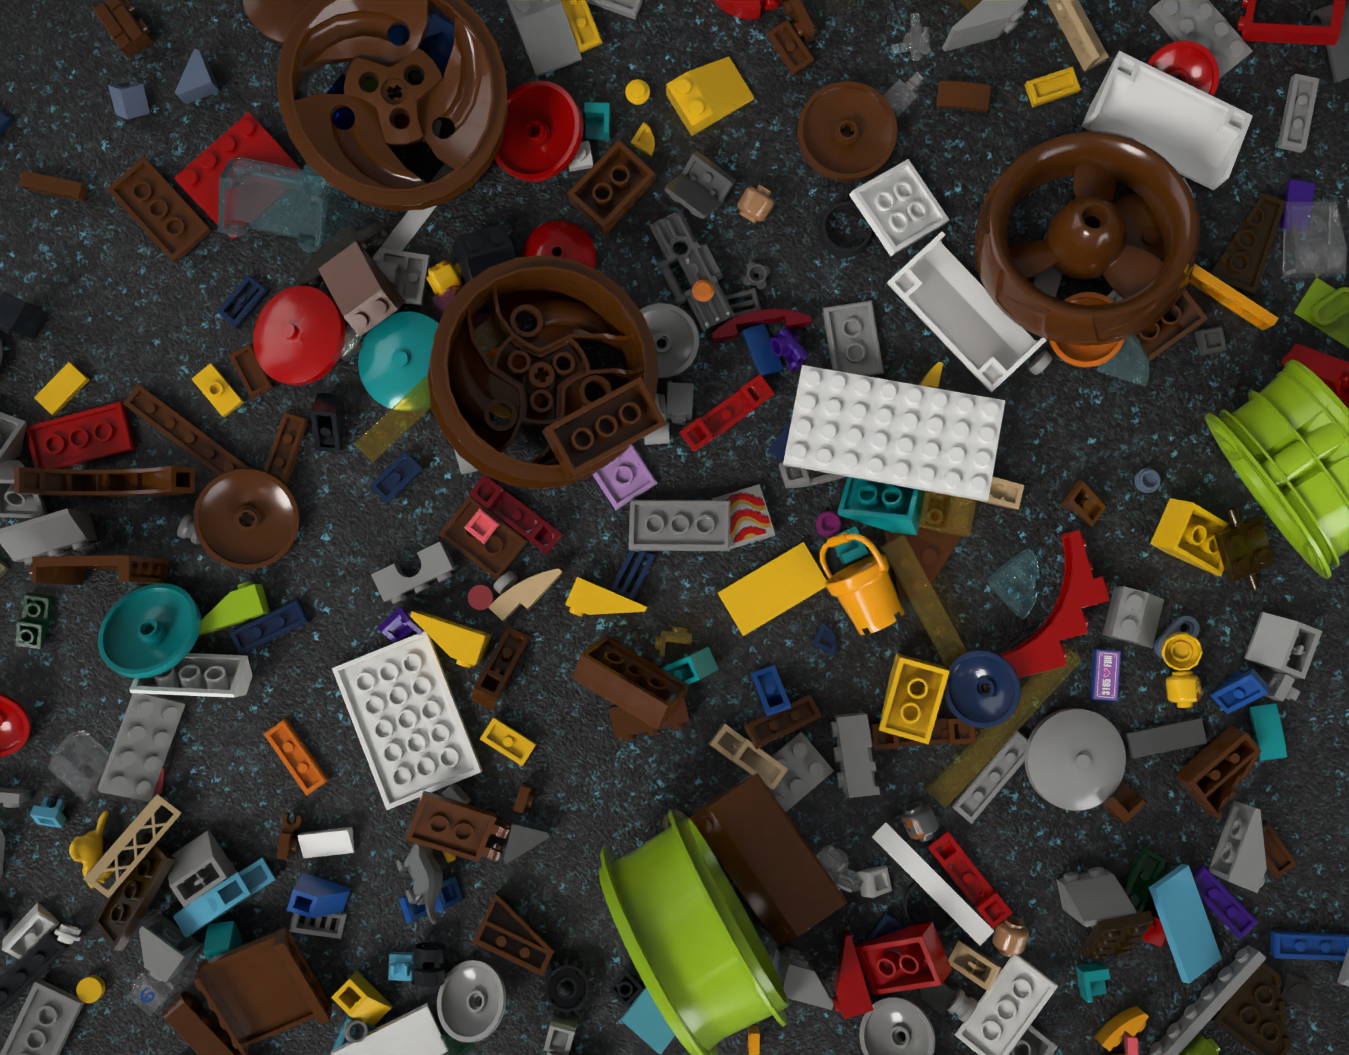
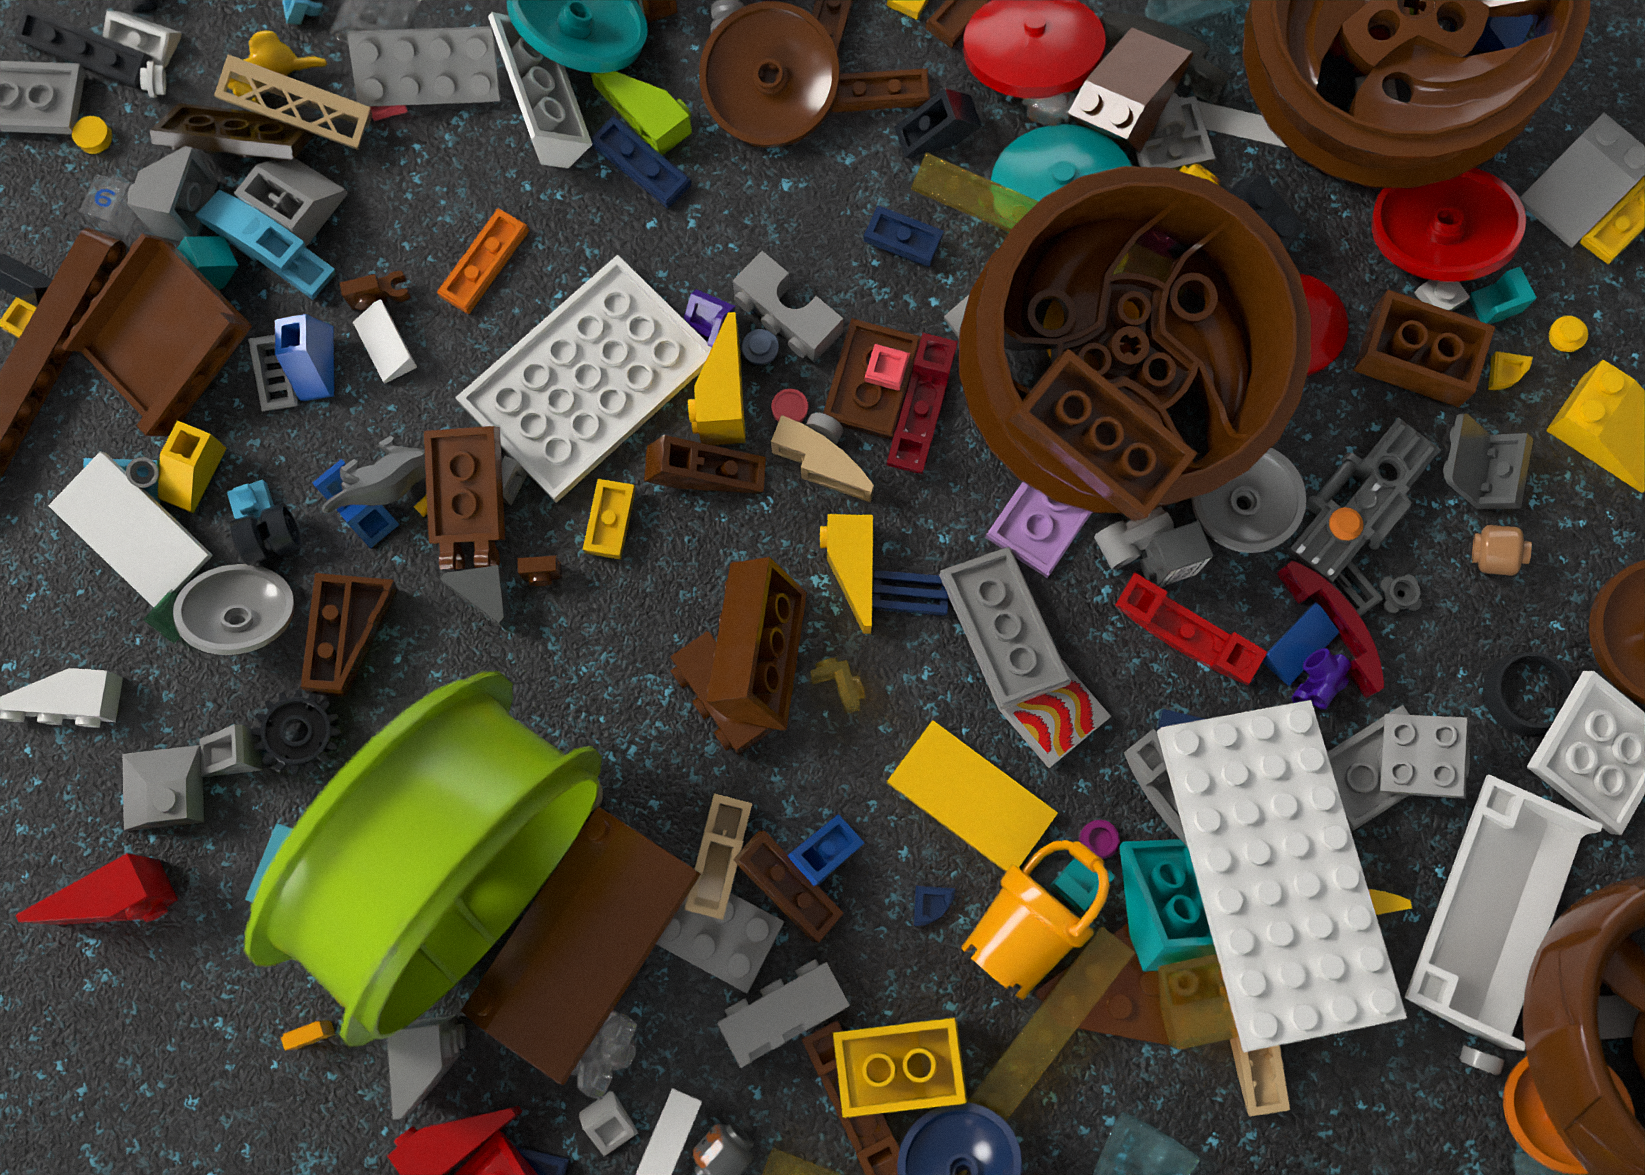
camera: 70 degrees right, 10 degrees down
(433, 600) = (760, 347): none -> sand blue plate
(693, 667) = (815, 726): teal slope -> none
(860, 312) = (1425, 755): none -> light grey plate

